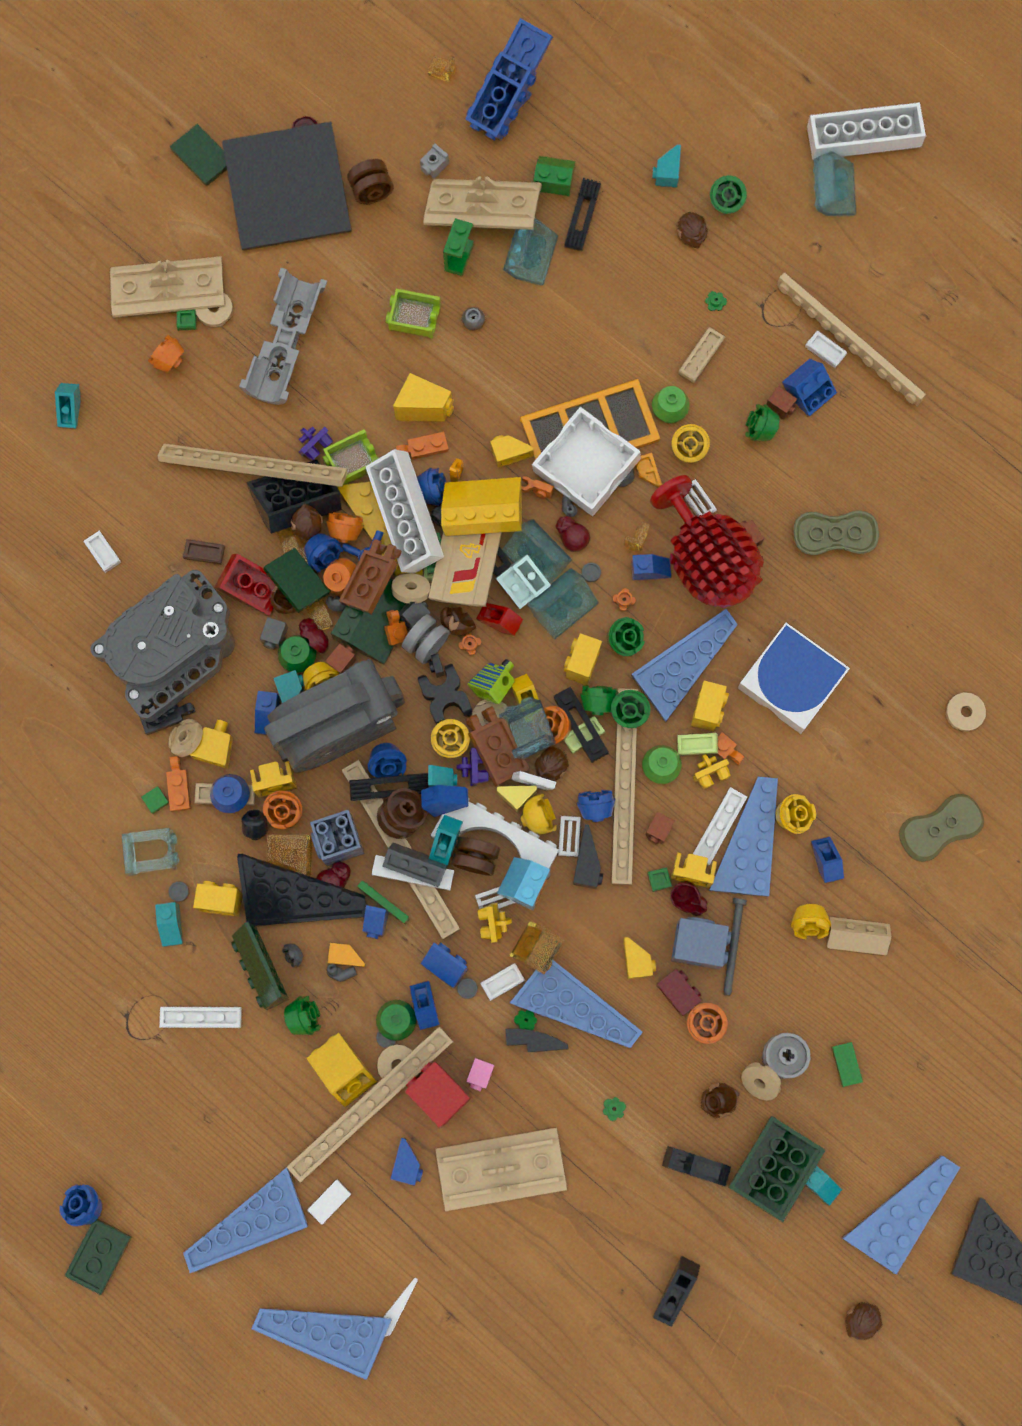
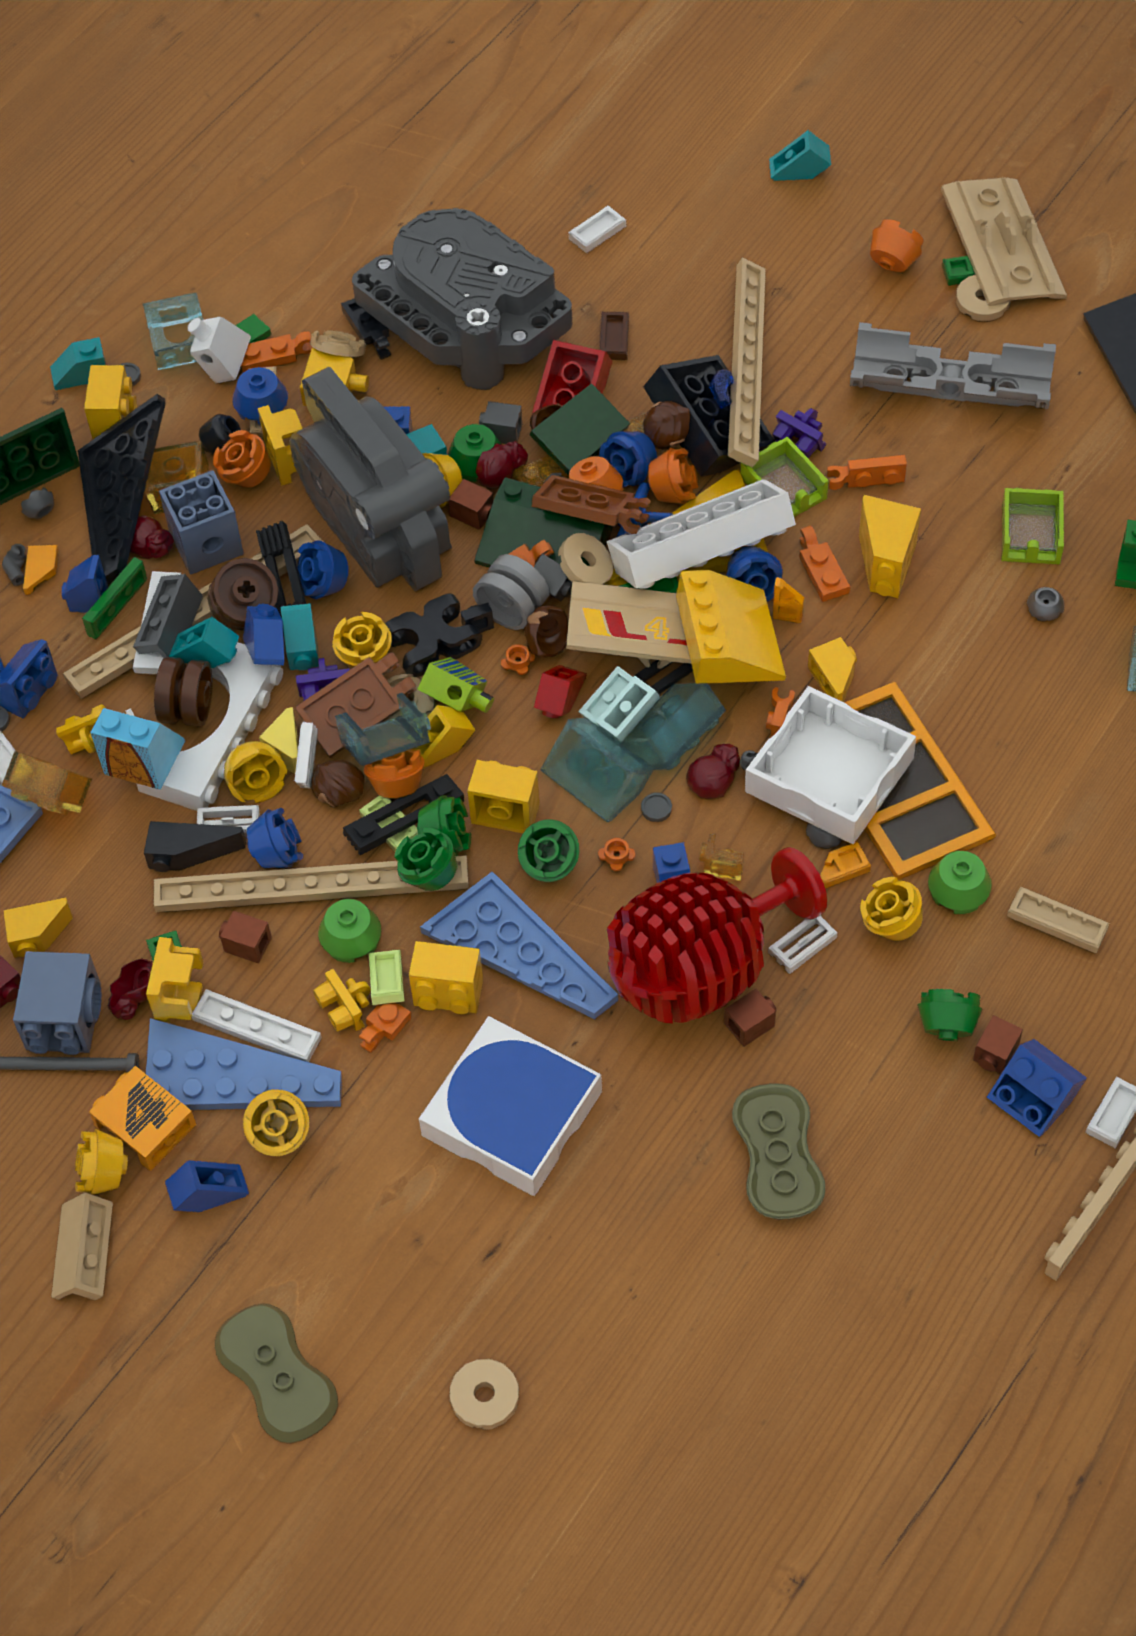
camera: 85 degrees right, 20 degrees down
(179, 819) = (218, 347): none -> white torso
(280, 483) = (718, 386): none -> clear blue arm
(356, 407) = (868, 472): none -> orange plate
(778, 896) = (143, 1116): none -> light orange panel

